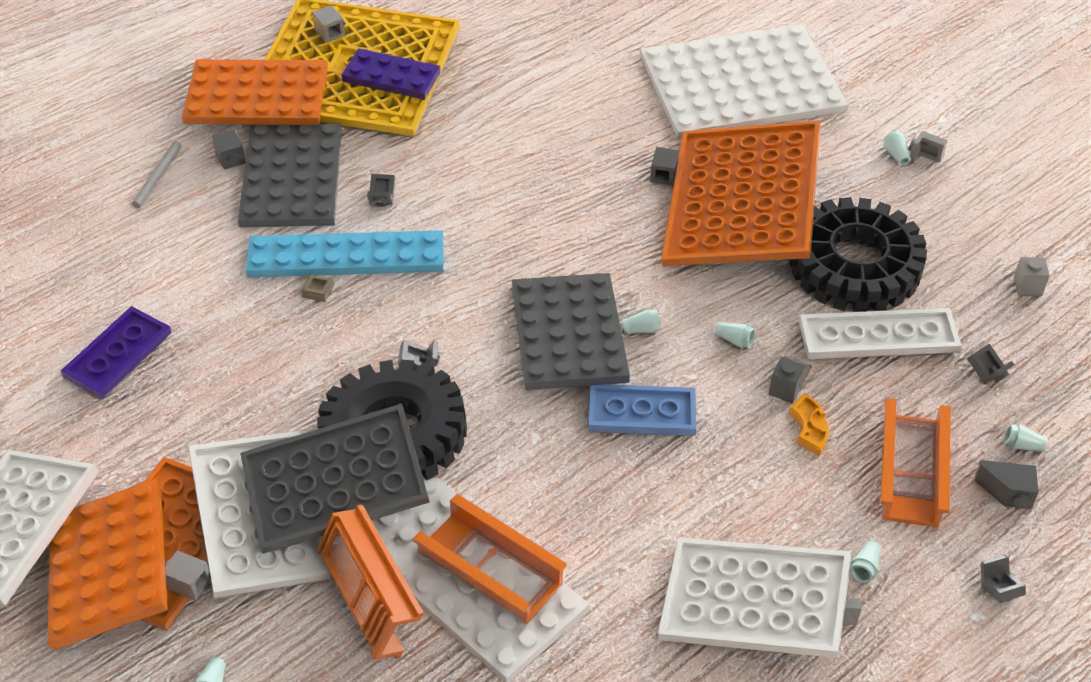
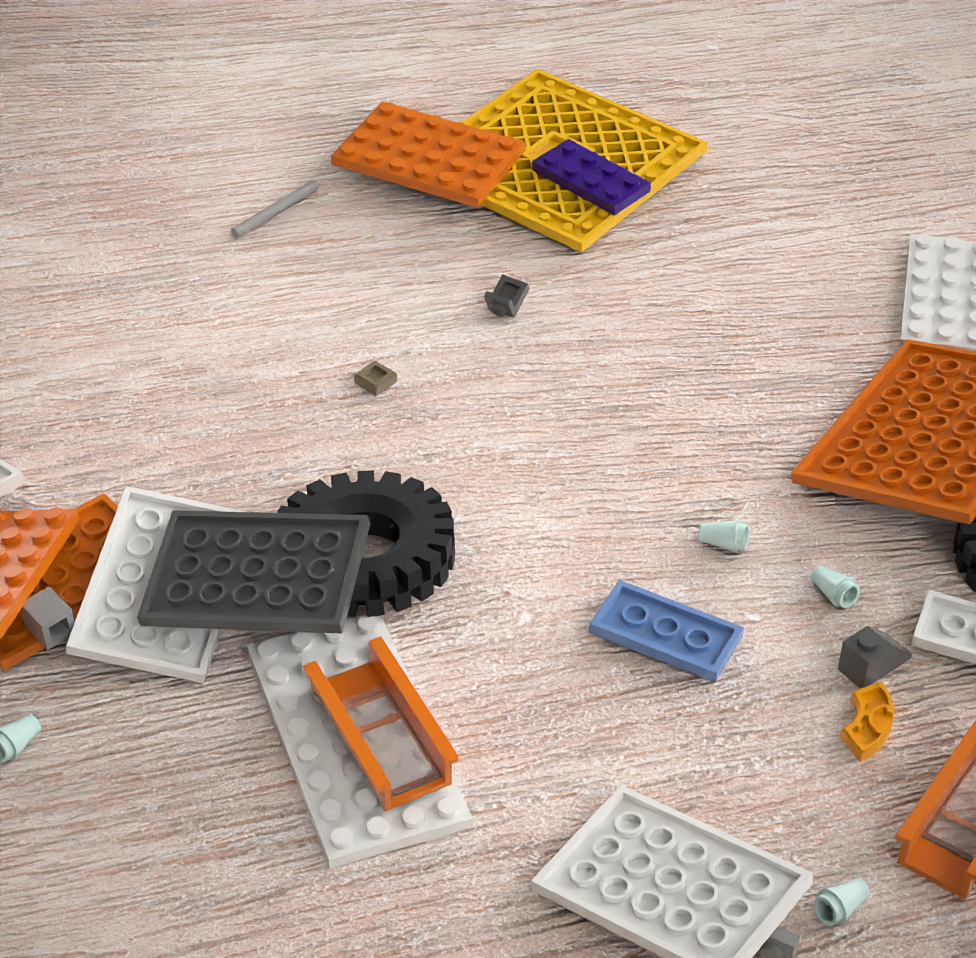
camera: 25 degrees right, 5 degrees down
(116, 352) = (122, 373): dark purple plate -> none
(228, 149) = (364, 205): dark grey brick -> none
(291, 176) = (418, 253): dark grey plate -> none
(328, 23) = (549, 104): light grey brick -> none
(345, 253) = (430, 352): medium azure plate -> none
(368, 580) = (229, 694): orange piece -> none
(419, 354) = (442, 481): bracket -> none
(569, 331) = (630, 515): dark grey plate -> none
(664, 166) = (858, 369): dark grey brick -> none

